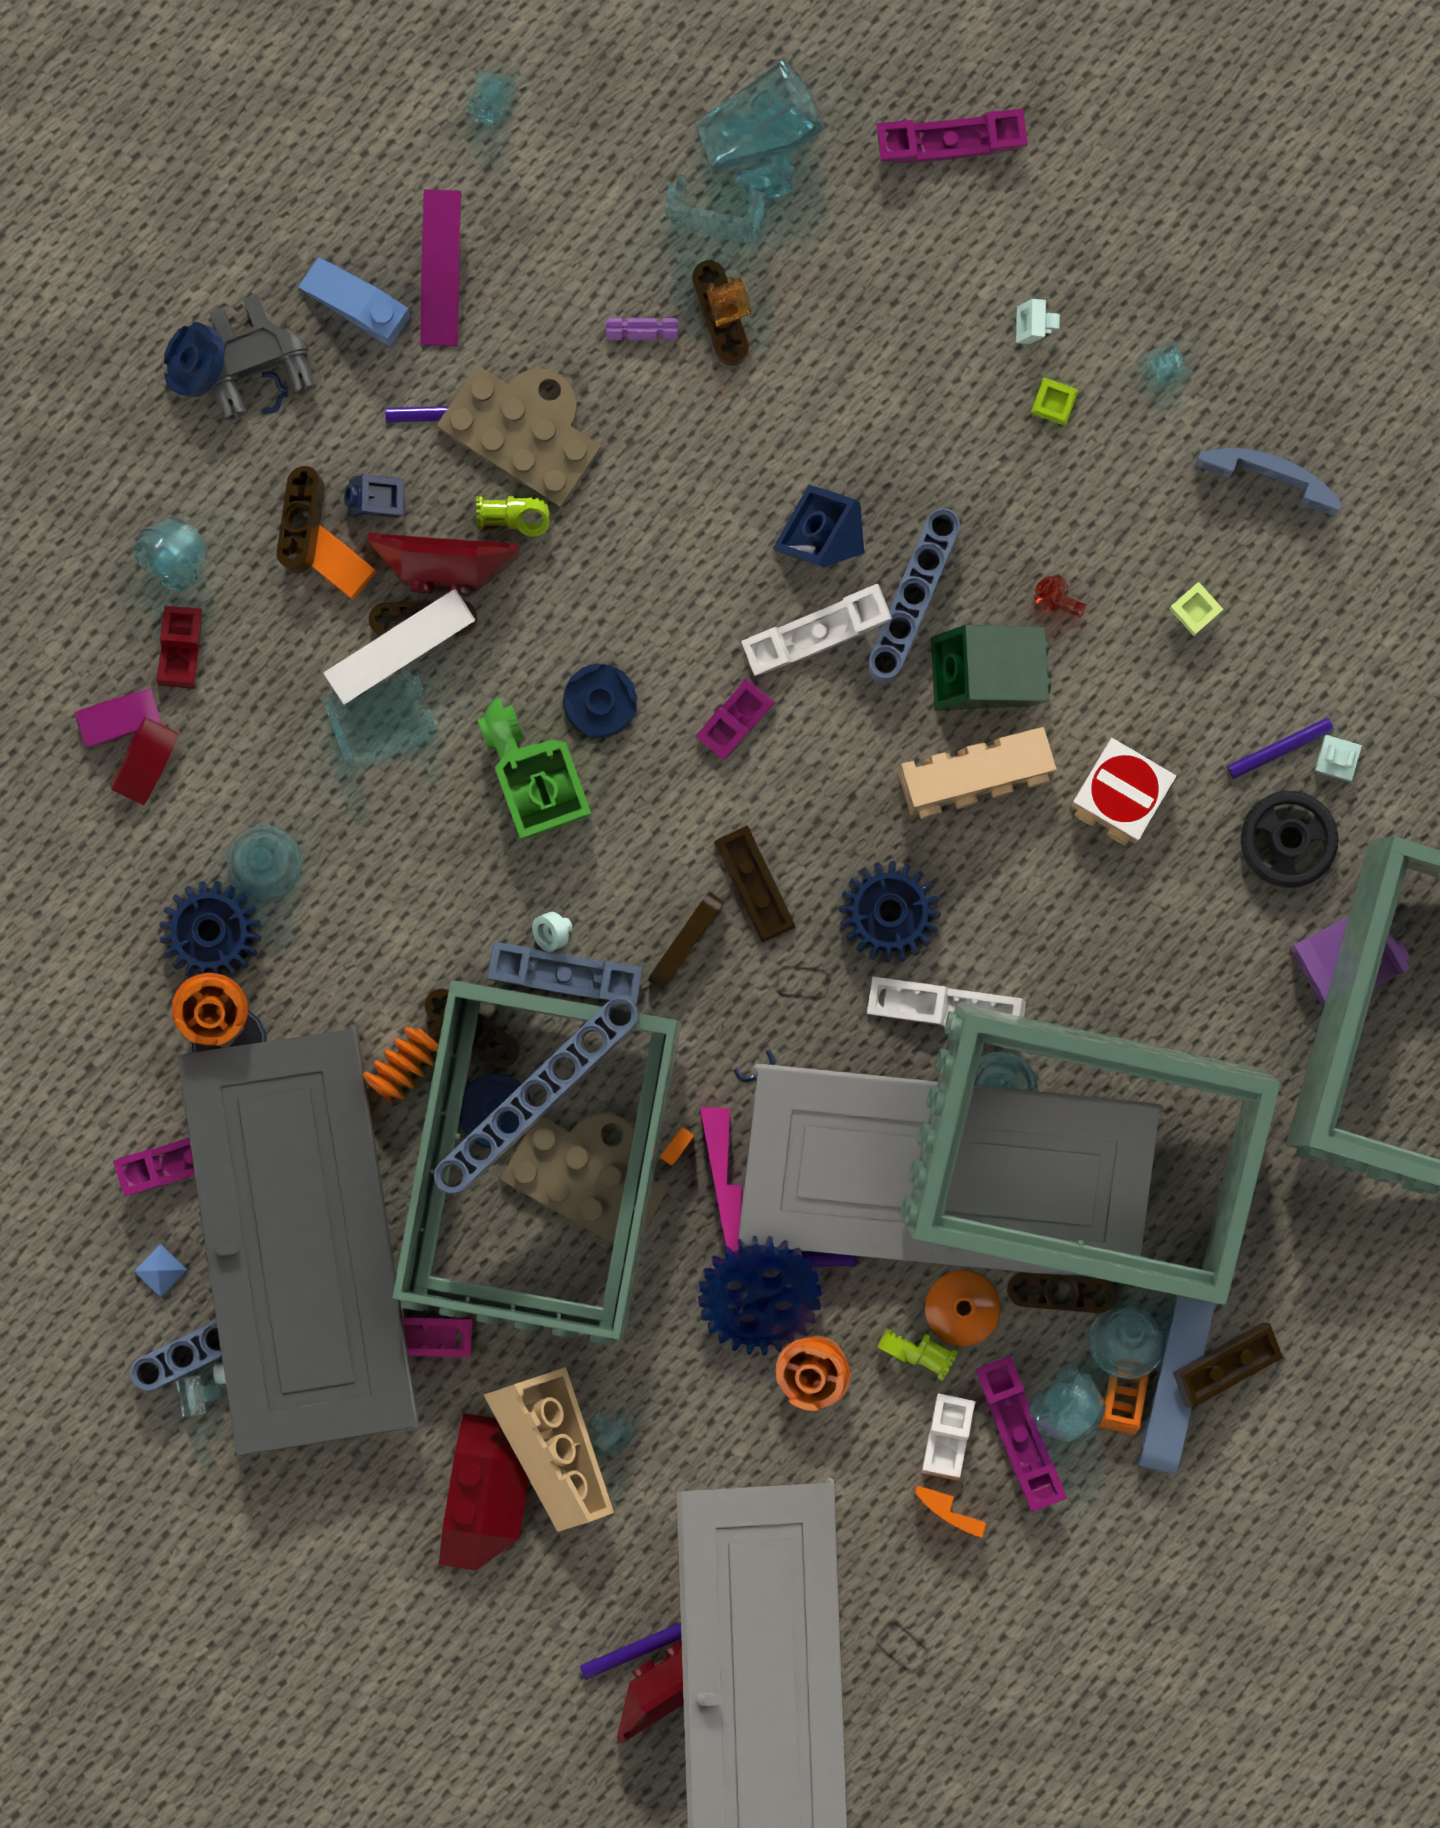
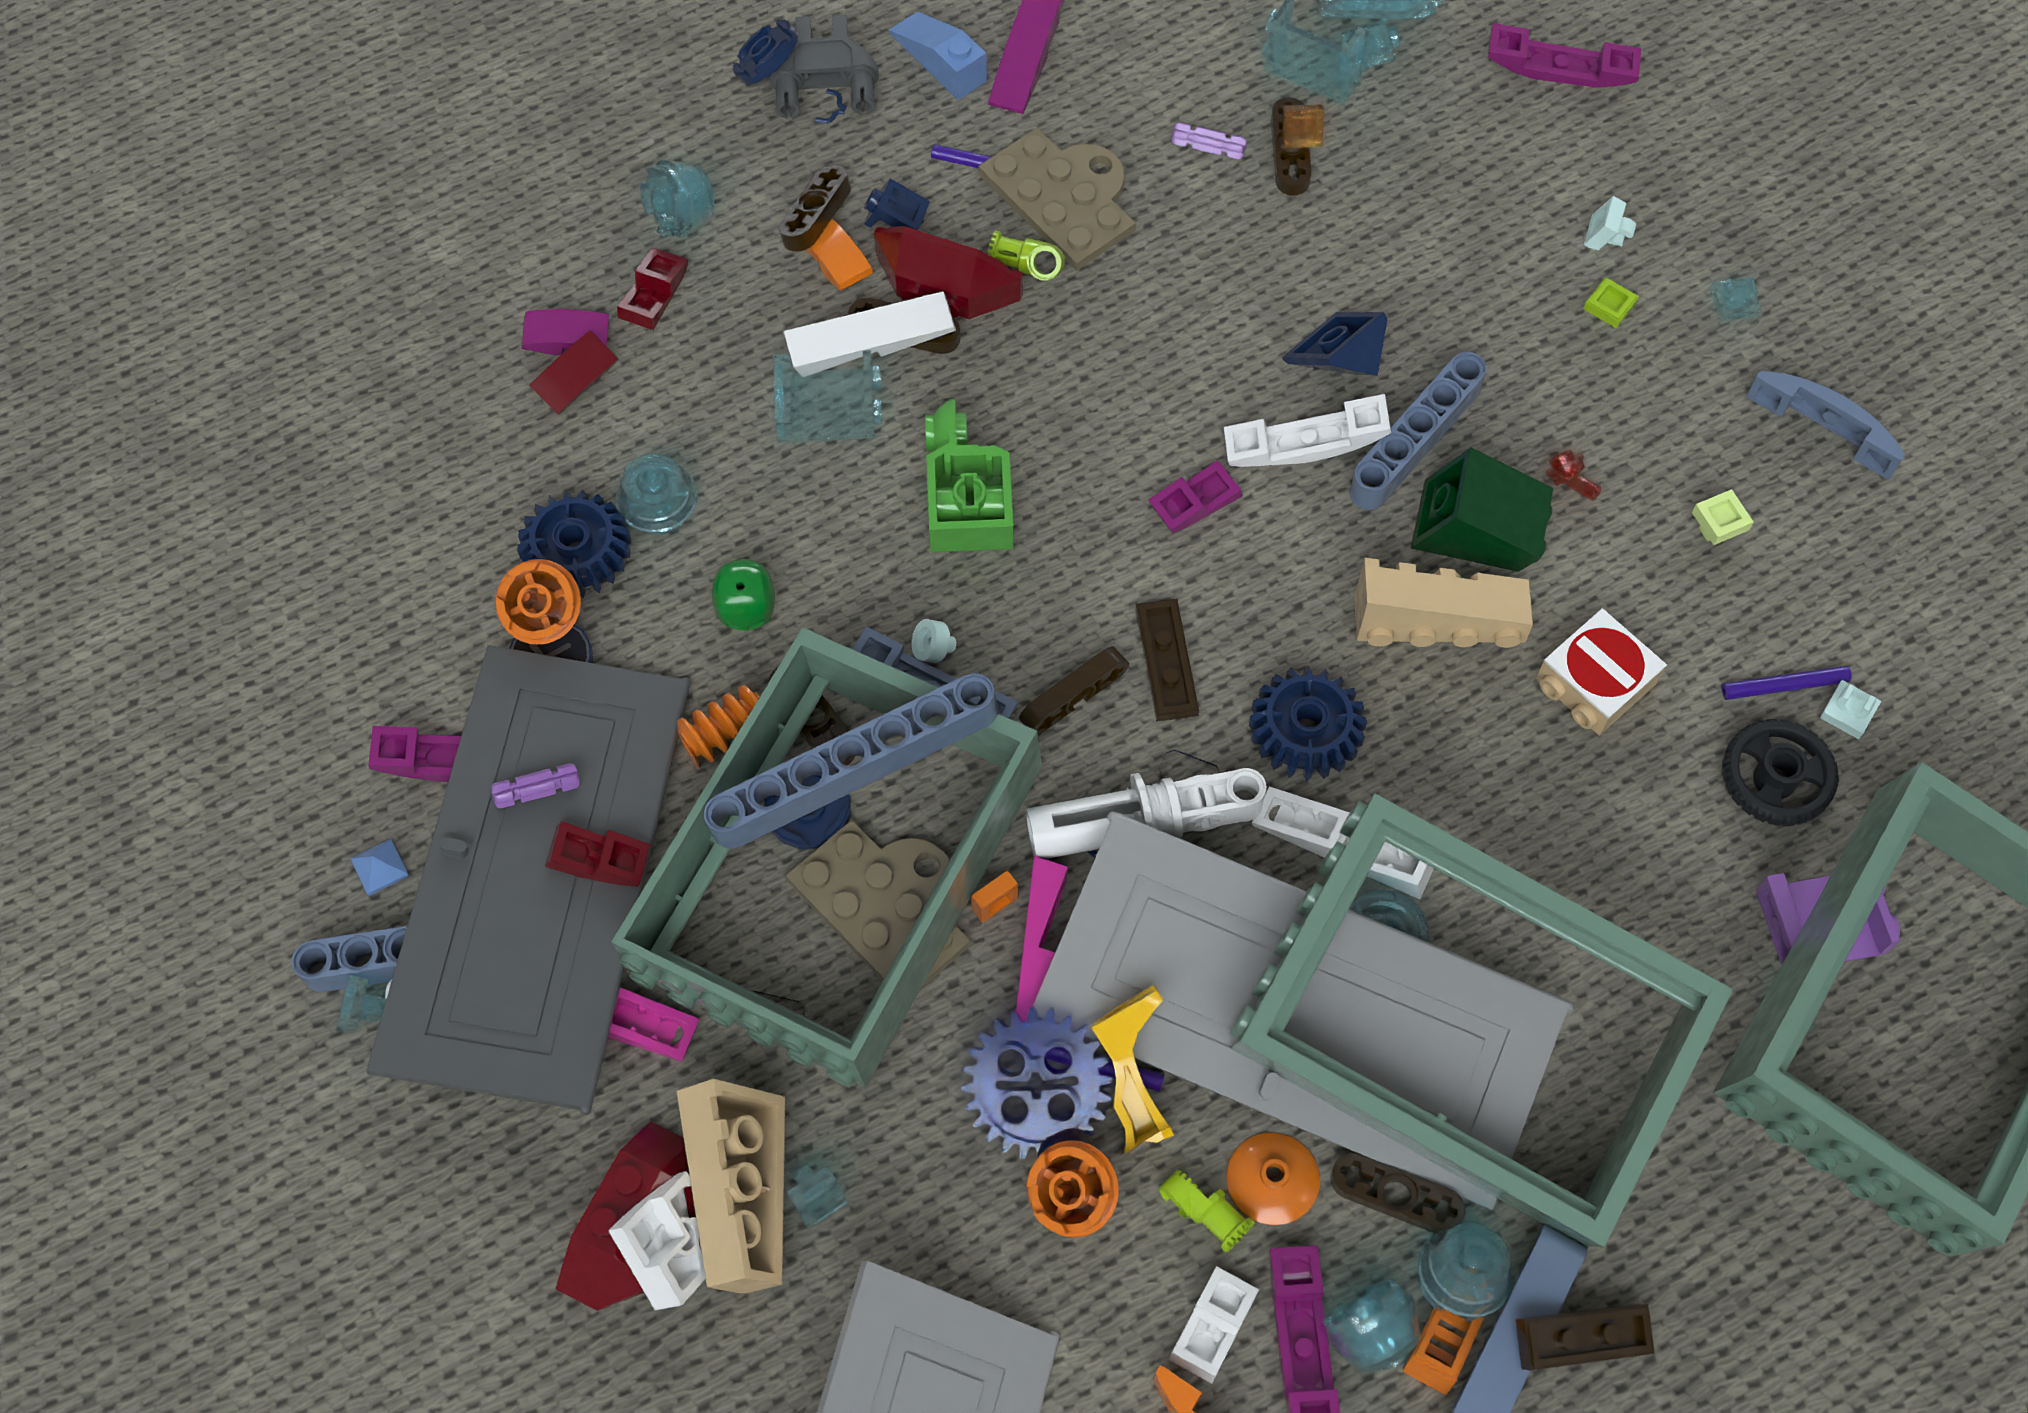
camera: 20 degrees right, 20 degrees down
(271, 1173) = (535, 785): none -> medium lavender axle
(344, 1216) = (597, 857): none -> dark red slope
(372, 922) = (746, 607): none -> green helmet
(513, 1512) = (662, 1244): none -> white slope
(602, 712) = (1048, 451): dark blue tile -> none
(789, 1031) = (1169, 806): none -> white piece
(813, 1243) = (1132, 1101): none -> yellow animal

